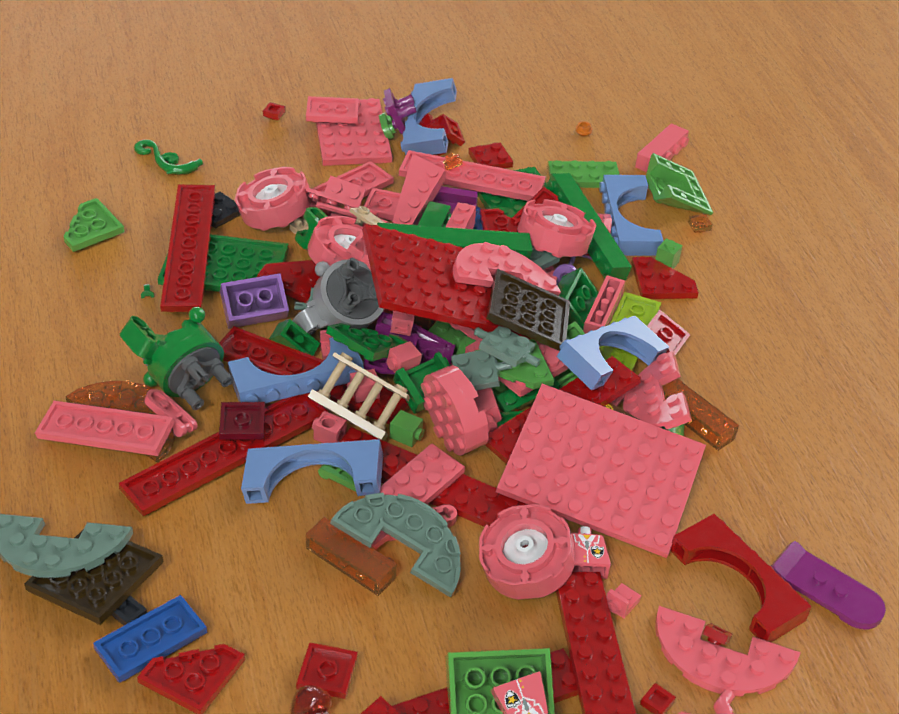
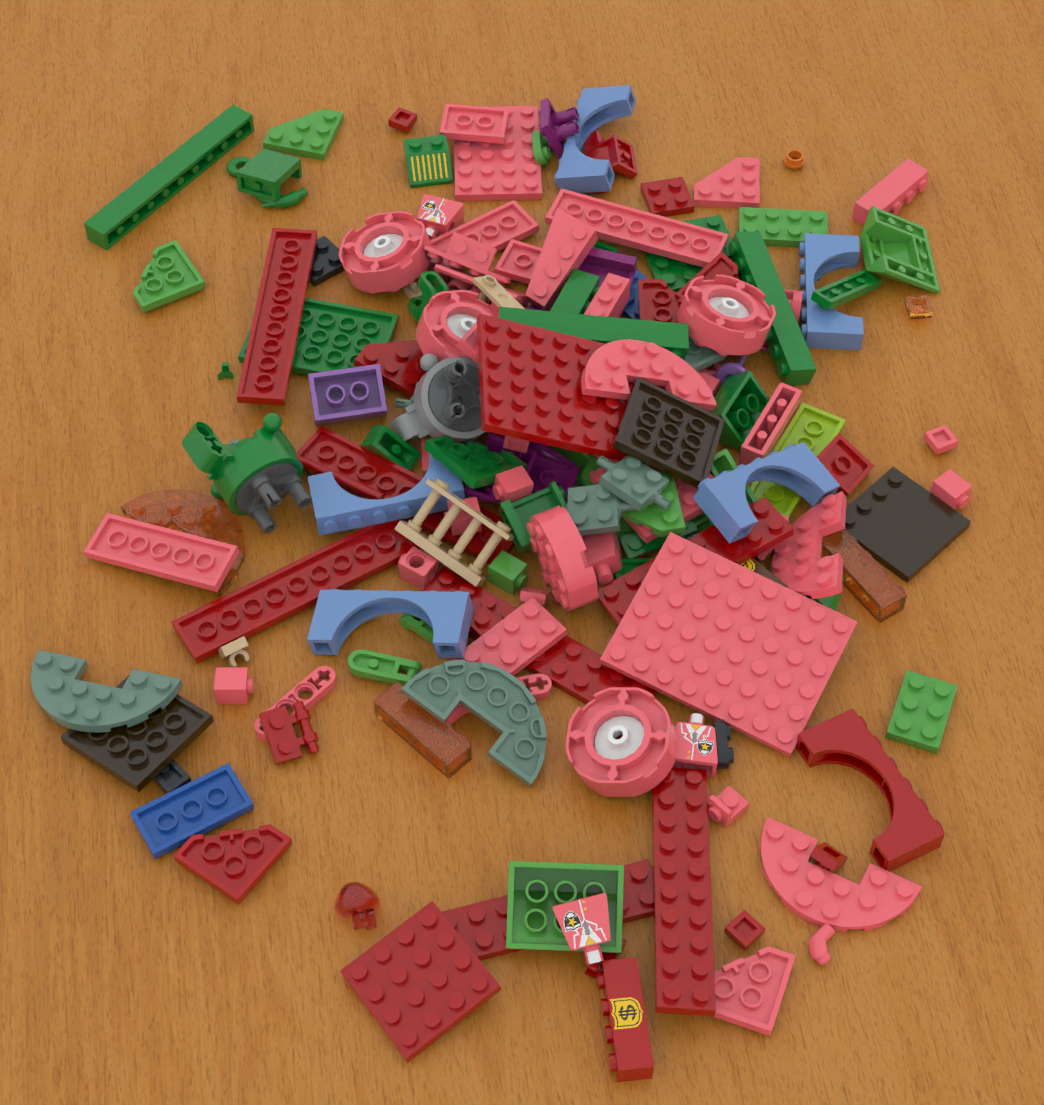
camera: 10 degrees right, 10 degrees up
(85, 155) = (168, 177): none -> green brick
(165, 406) = (233, 532): coral plate -> none
(168, 148) = (266, 173): none -> green panel
(176, 501) = (233, 649): none -> tan tile
(178, 531) = (233, 685): none -> coral brick
(197, 124) = (306, 136): none -> bright green plate
(226, 570) = (281, 735): none -> red plate
(231, 540) = (307, 684): none -> coral beam
(242, 420) = (317, 553): dark red plate -> none
(297, 137) = (427, 161): none -> green slope
(307, 508) = (382, 667): none -> bright green plate
(314, 171) = (440, 215): none -> coral torso
(328, 669) = (380, 863): red plate -> none
(425, 443) = (539, 595): none -> coral plate
(452, 161) = (613, 208): clear orange plate -> none
(538, 147) = (731, 185): none -> coral plate
(614, 556) = (723, 735): none -> black plate
(643, 211) = (846, 289): none -> green plate
(661, 281) = (853, 387): red plate -> none
(669, 253) = (867, 352): bright green brick -> none
(723, 375) = (902, 524): none -> dark brown plate
(738, 313) = (940, 439): none -> coral plate
(754, 349) = (952, 490): none -> coral brick
(767, 515) = (921, 711): none -> bright green plate
(830, 587) = (974, 808): magenta piece -> none

